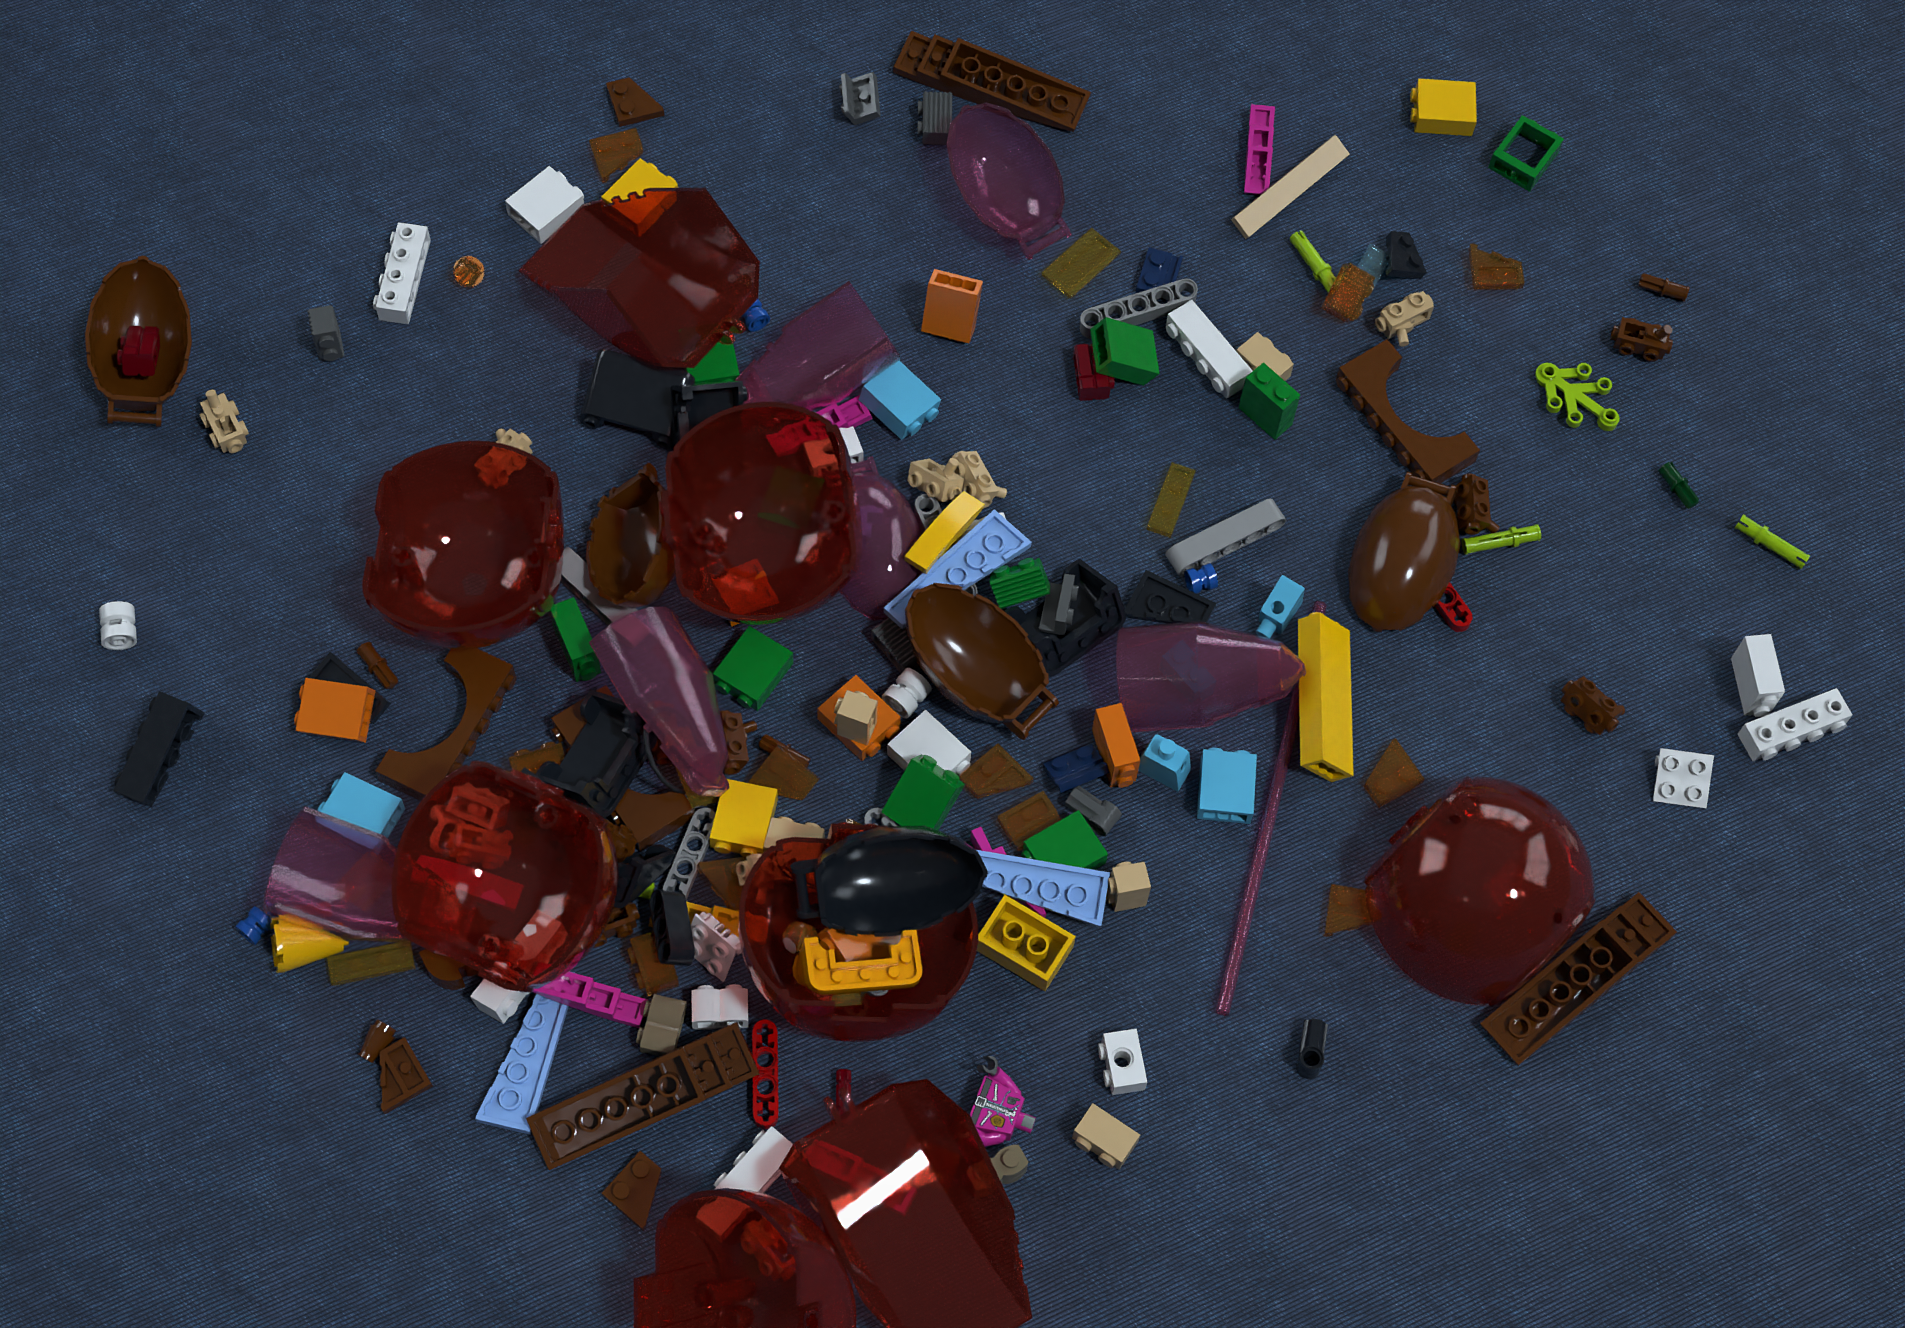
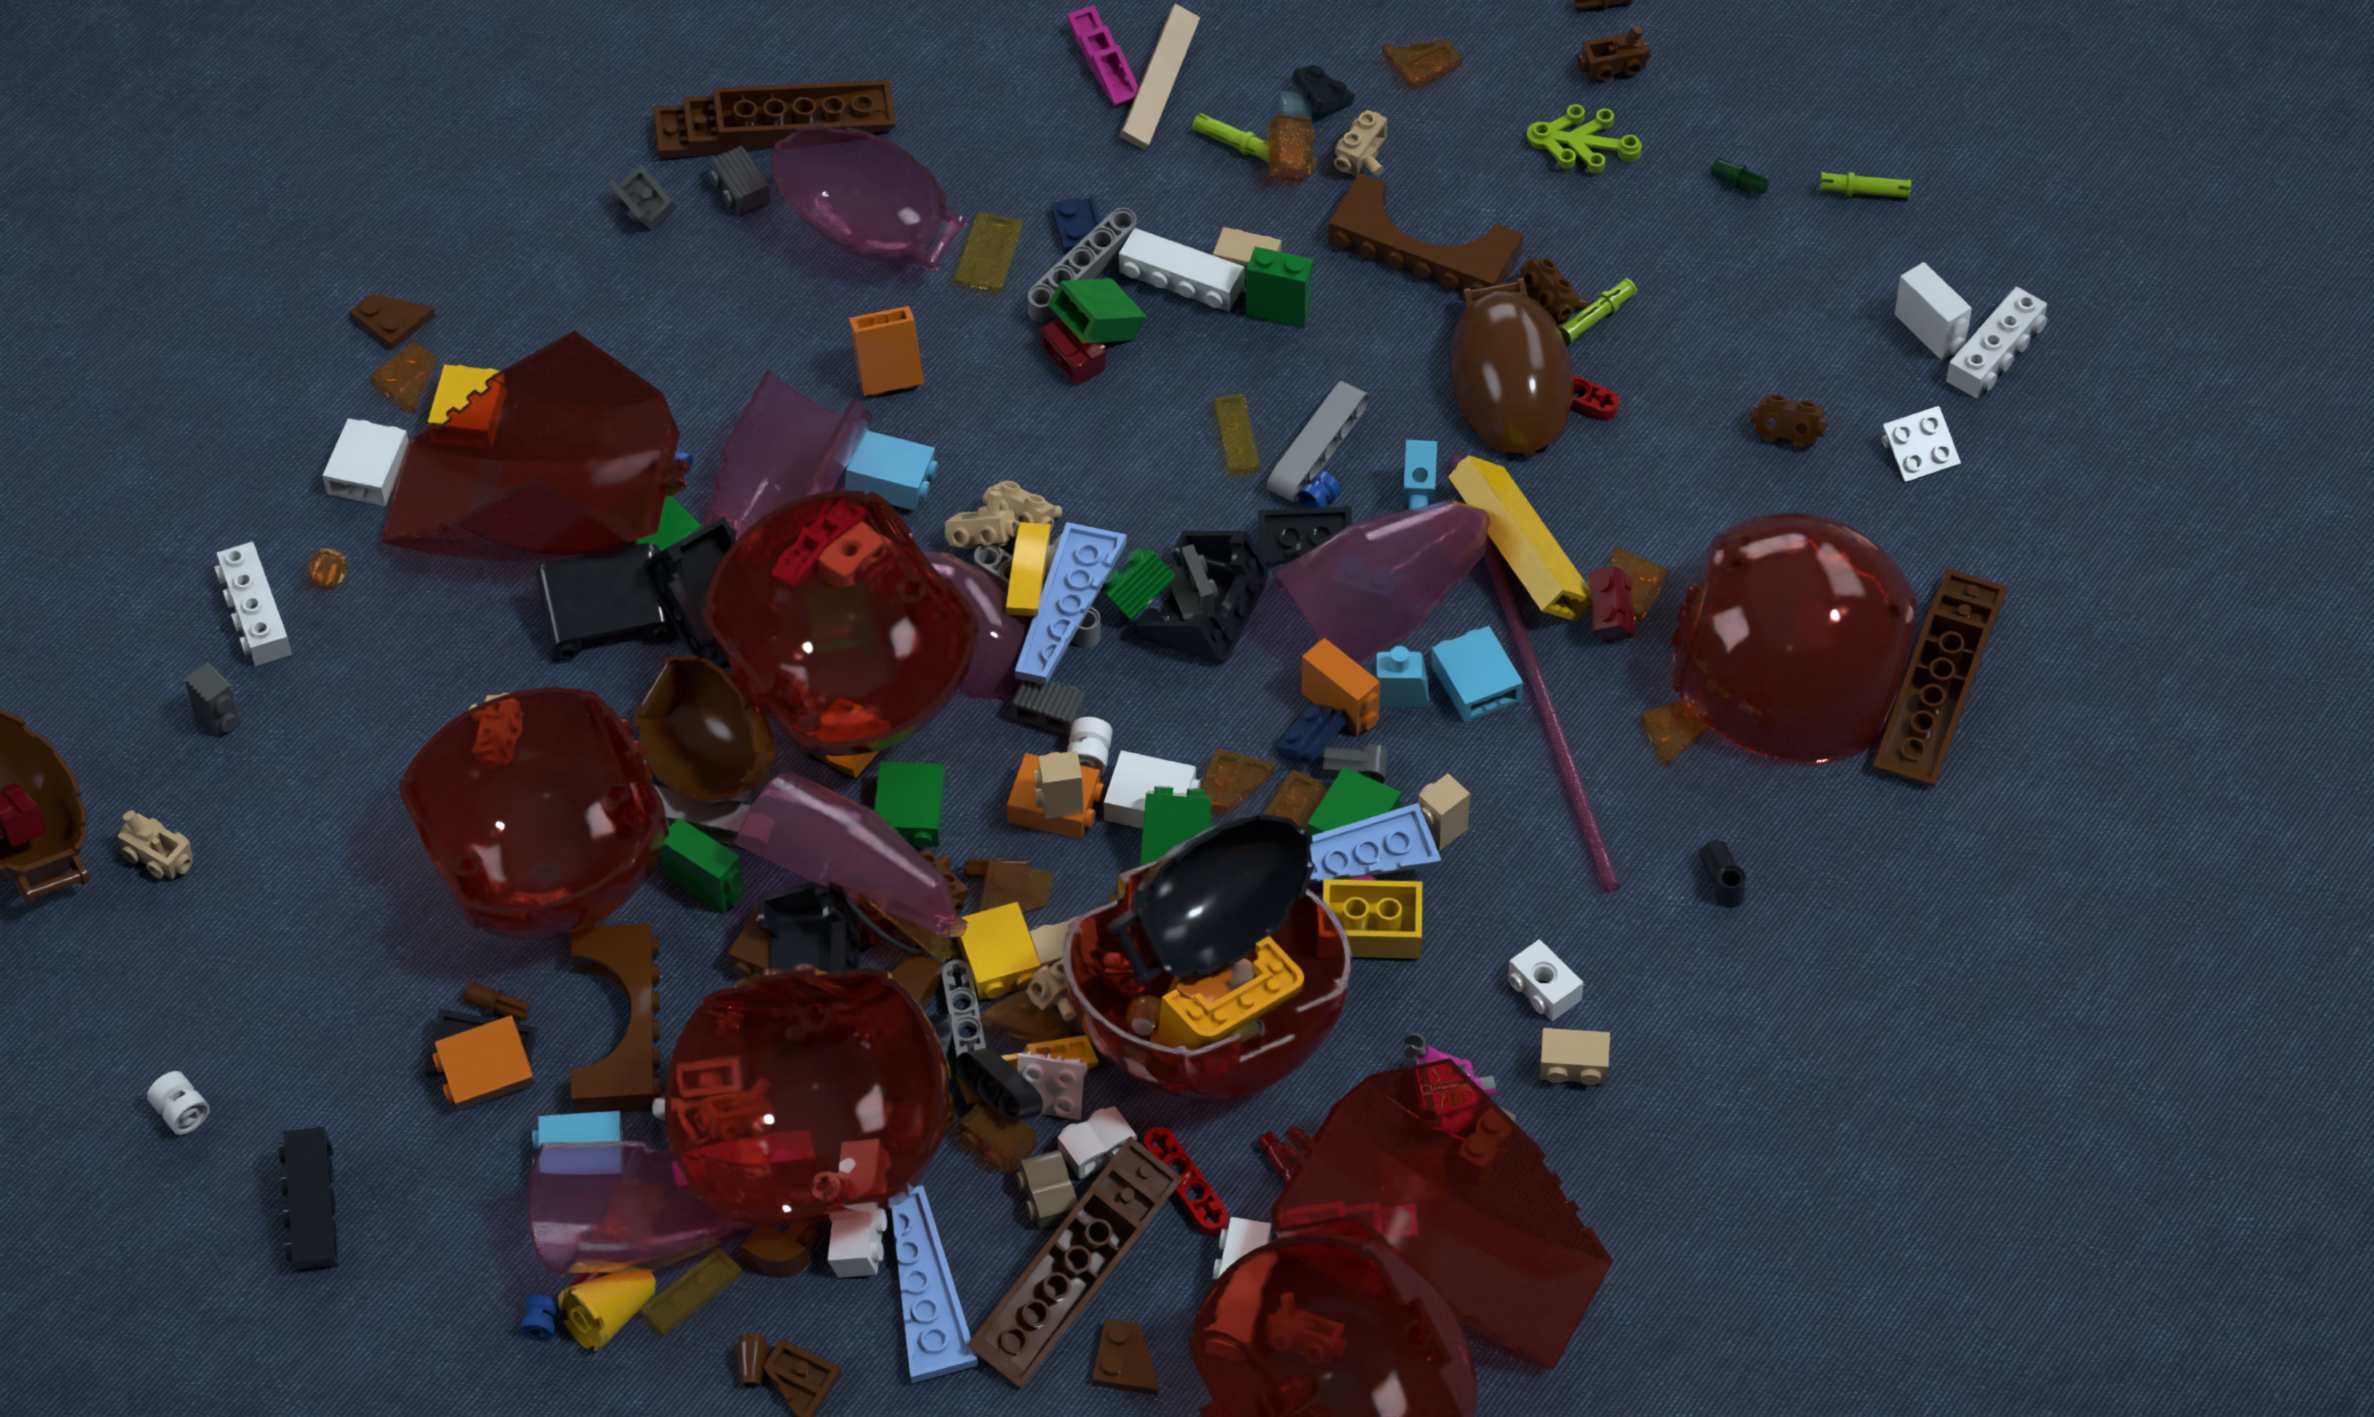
camera: 25 degrees left, 10 degrees down
(595, 998) = (959, 1198): dark pink slope -> none
(977, 656) = (1146, 668): reddish brown windscreen -> none
(1360, 786) = (1611, 604): none -> dark red brick

